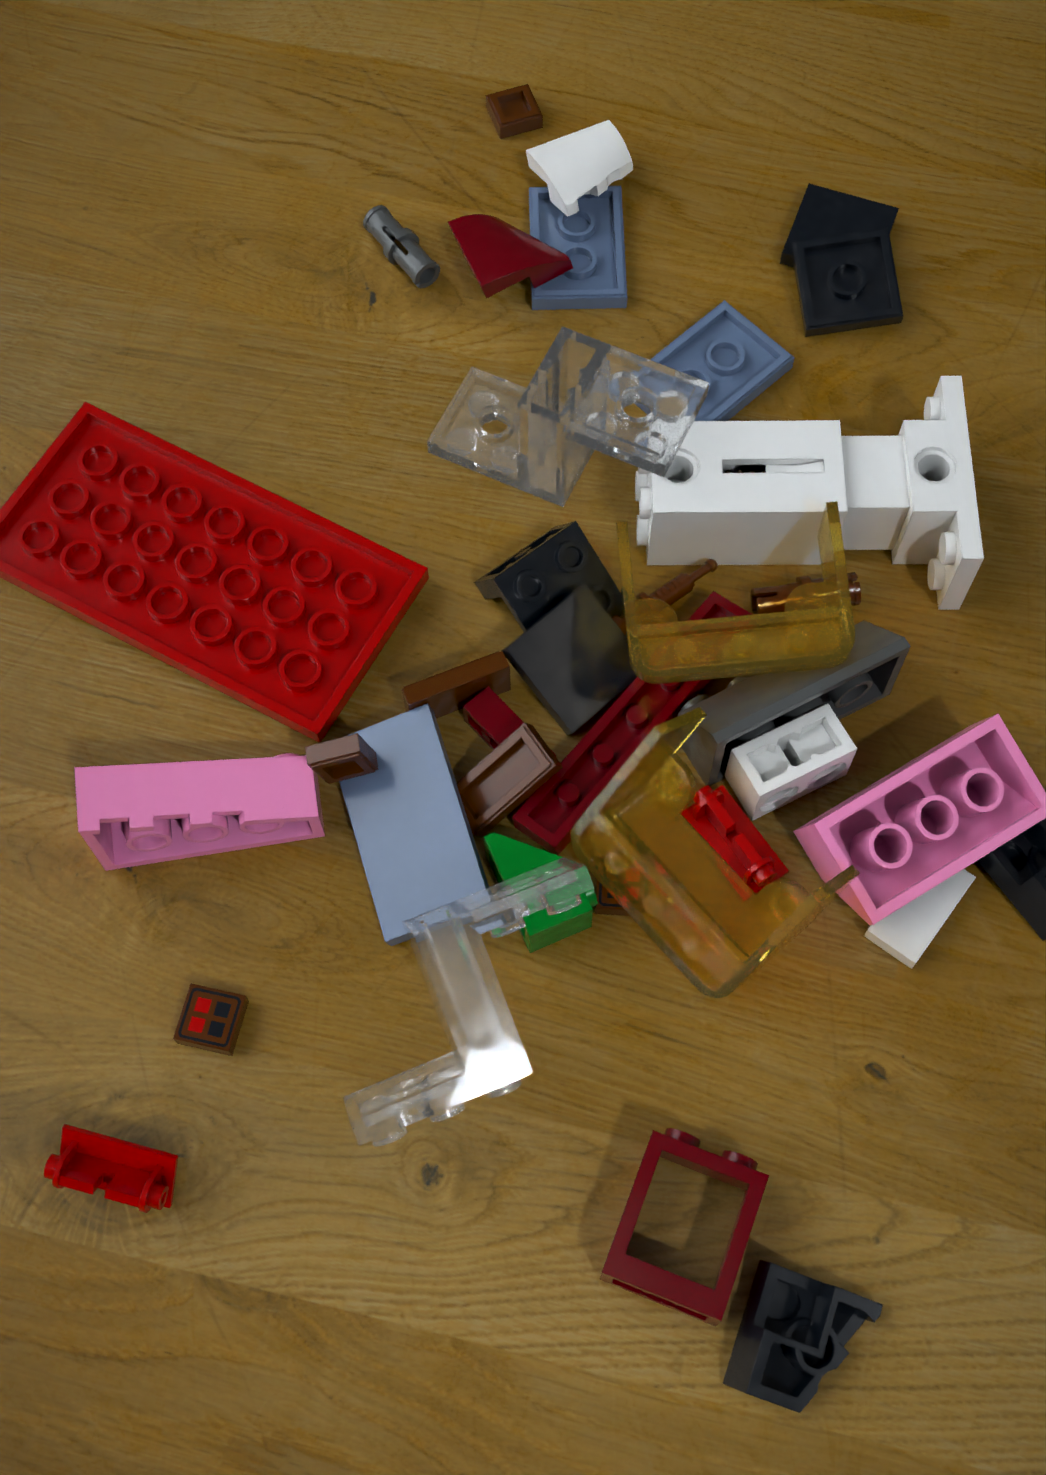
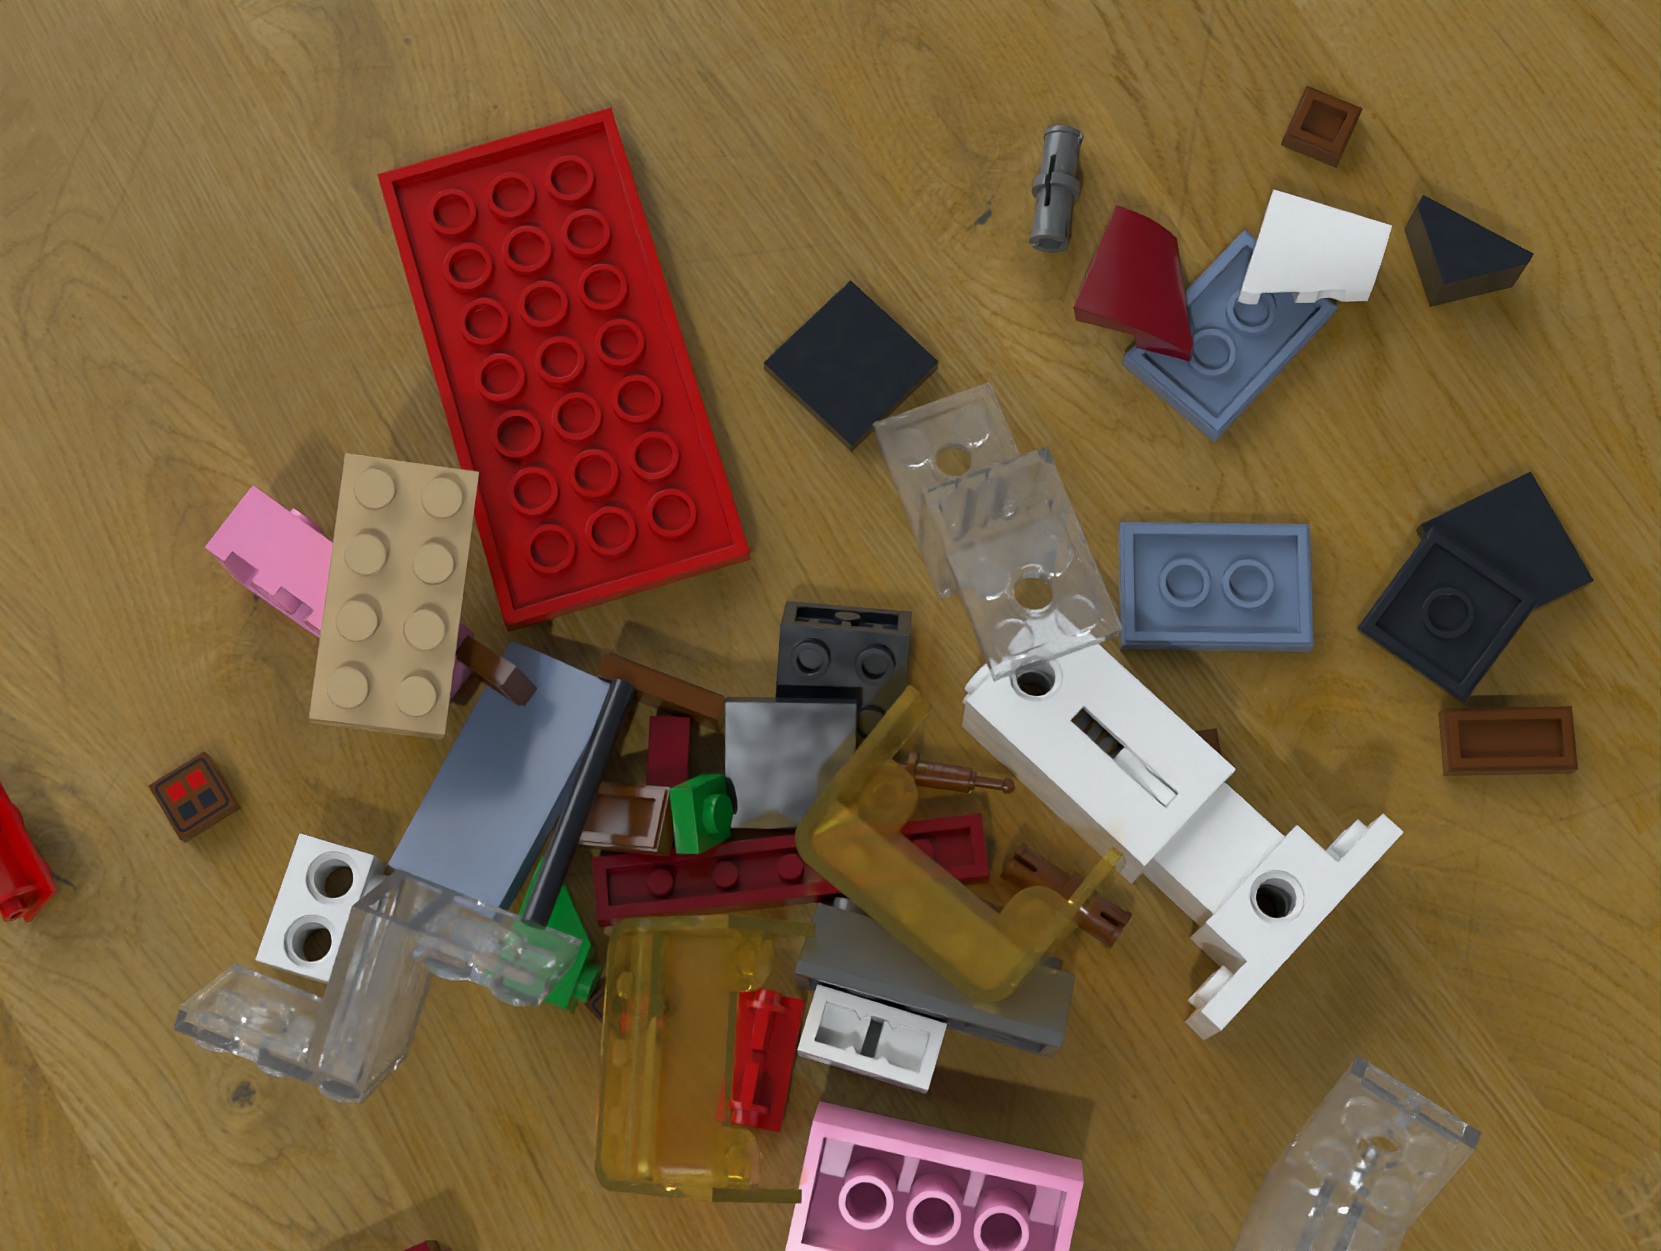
camera: 45 degrees right, 10 degrees up
(239, 754) = (393, 597): none -> tan brick
(365, 1008) = (306, 908): none -> white brick
(378, 429) = (850, 365): none -> black tile
(480, 782) = (578, 805): none -> black bar
(556, 727) = (701, 813): none -> green plate
(656, 110) = (1460, 256): none -> black slope
(942, 322) = (1507, 741): none -> reddish brown tile

